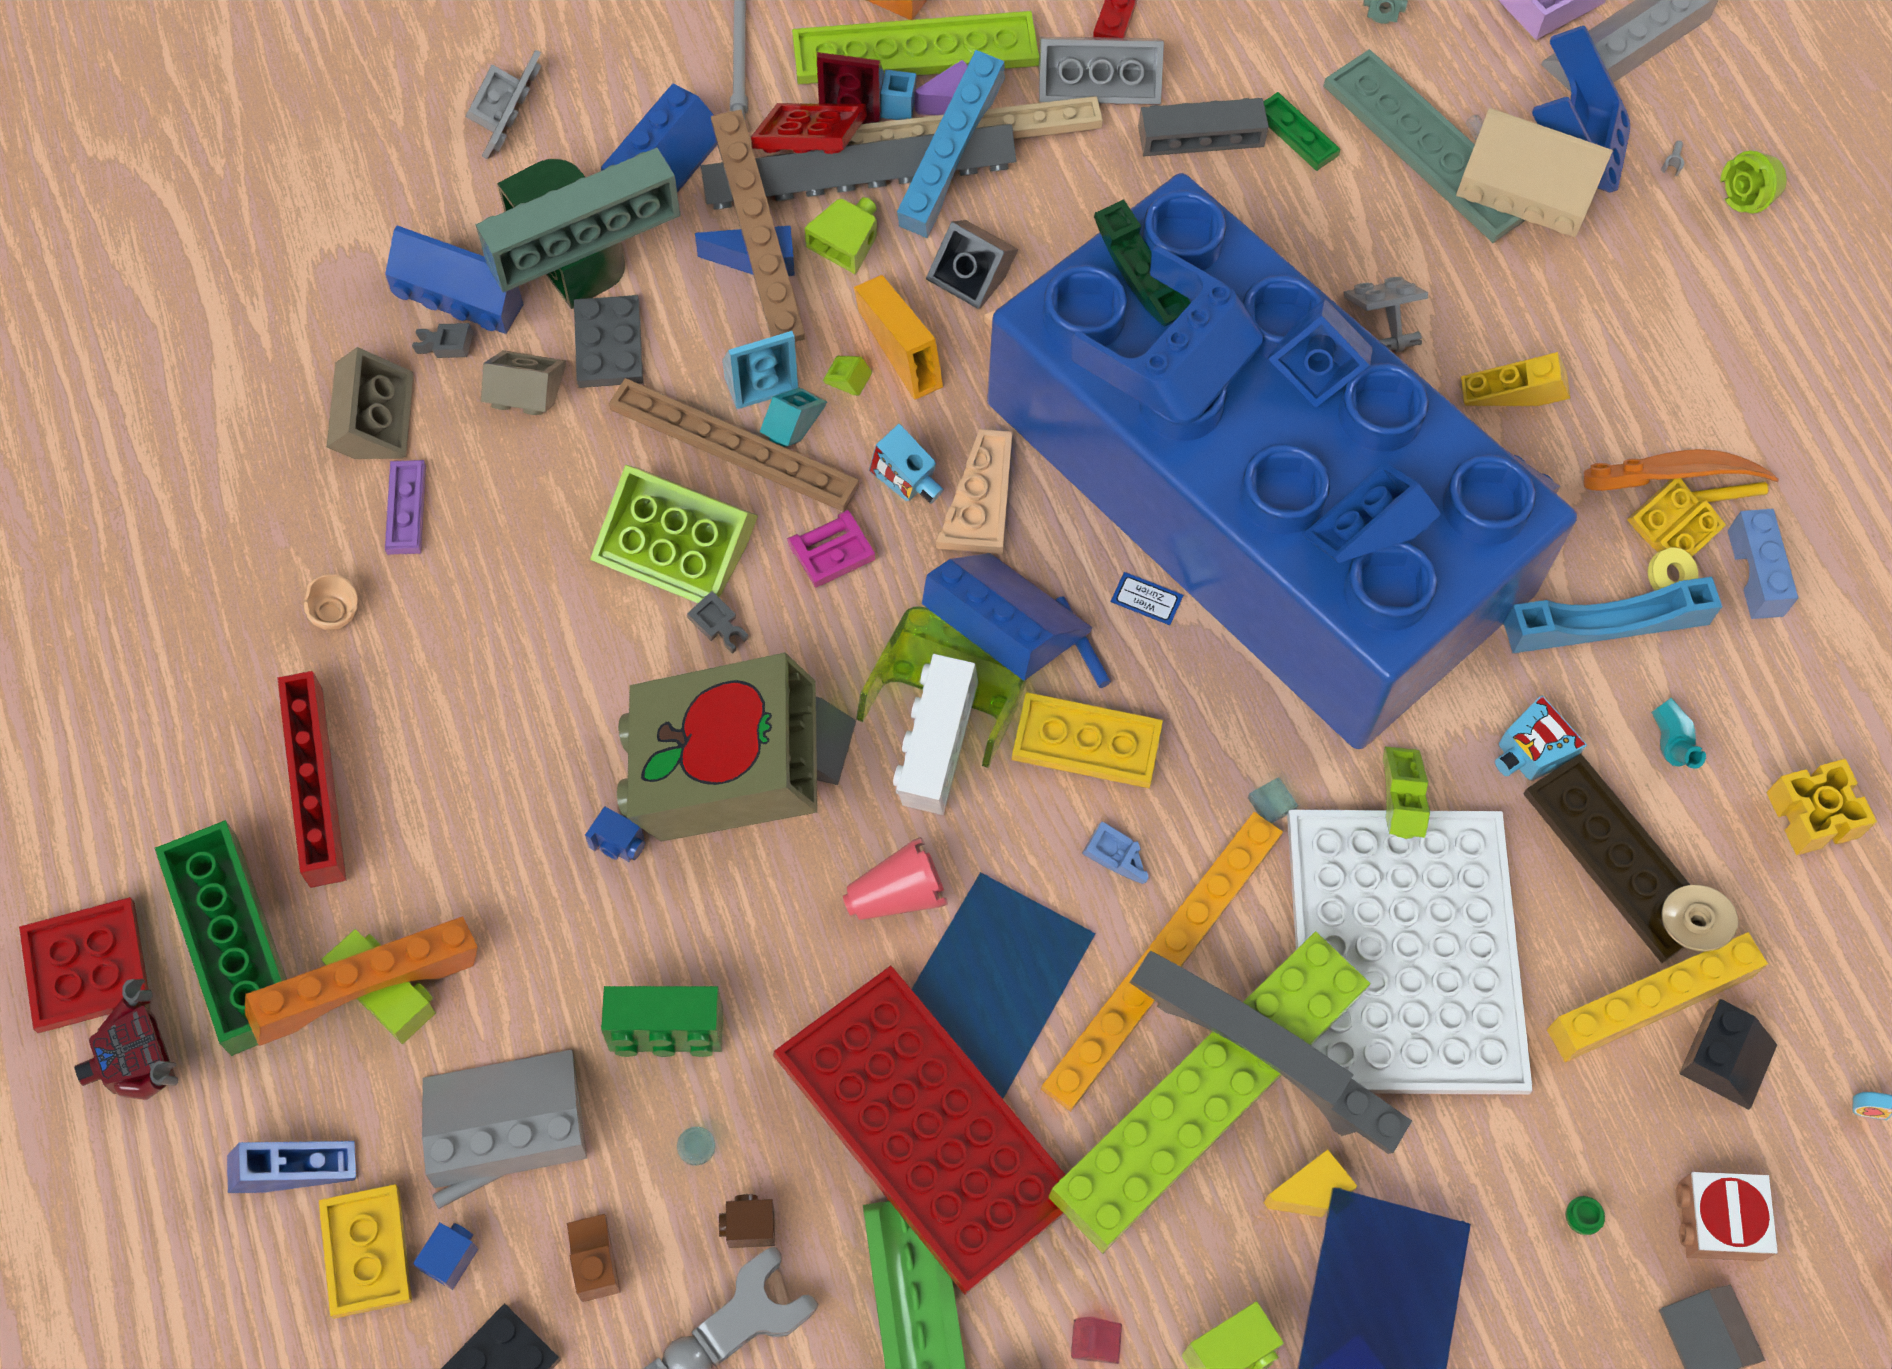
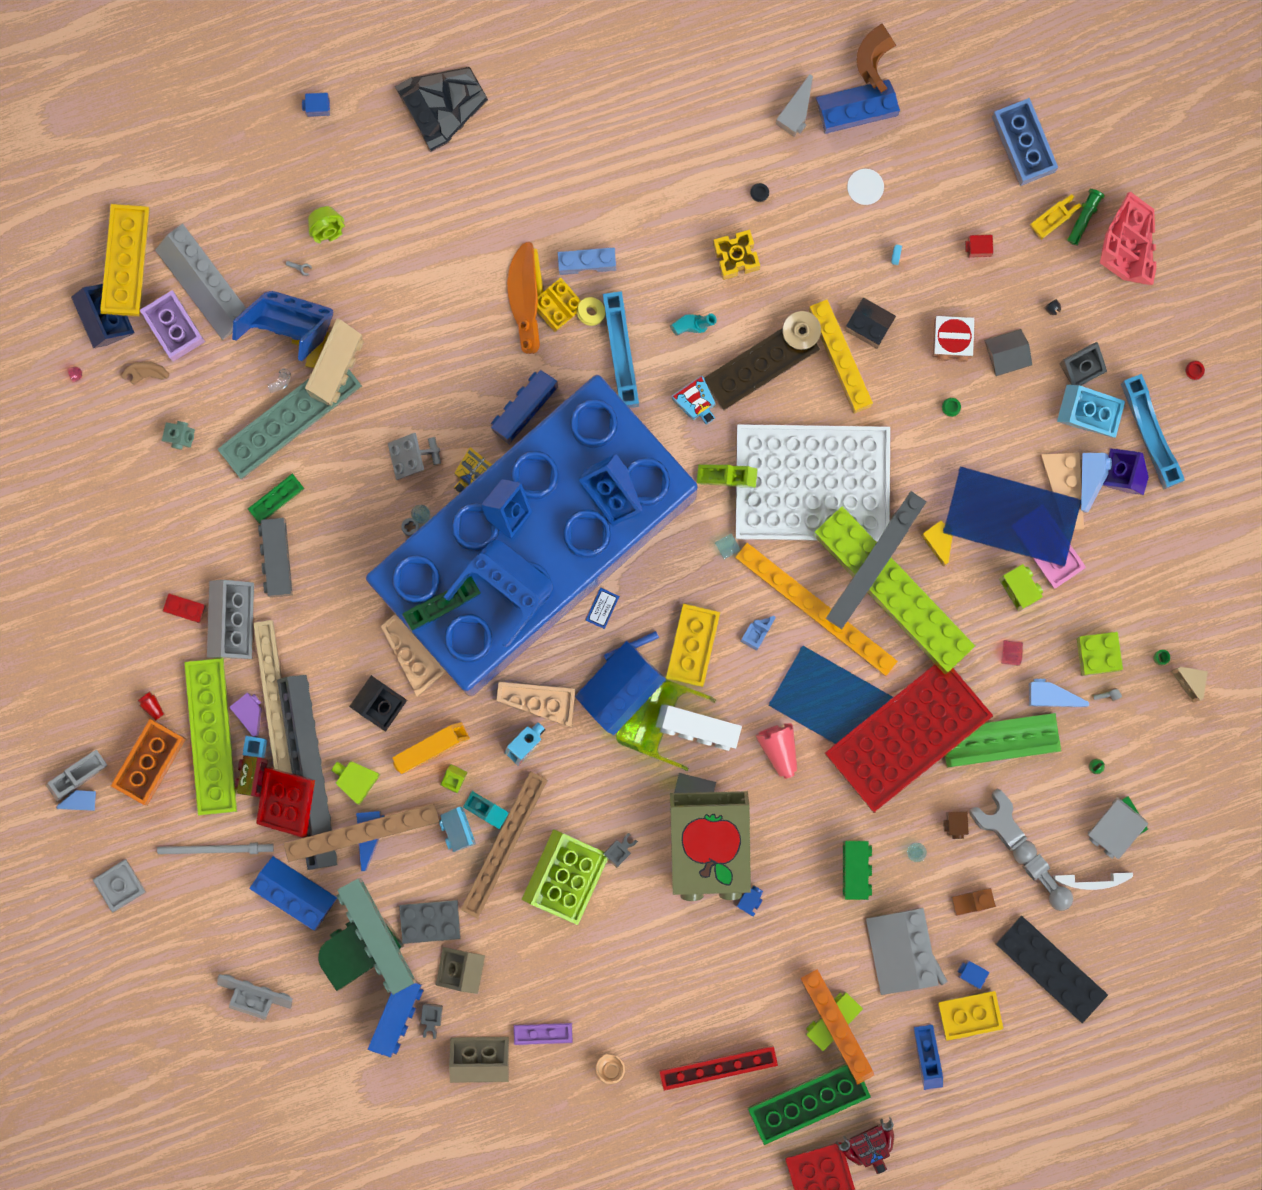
camera: 85 degrees left, 20 degrees up
(835, 556) = (579, 784): dark pink plate -> none
(967, 107) = (299, 714): dark azure arch -> none
(1521, 383) = (465, 385): yellow slope -> none

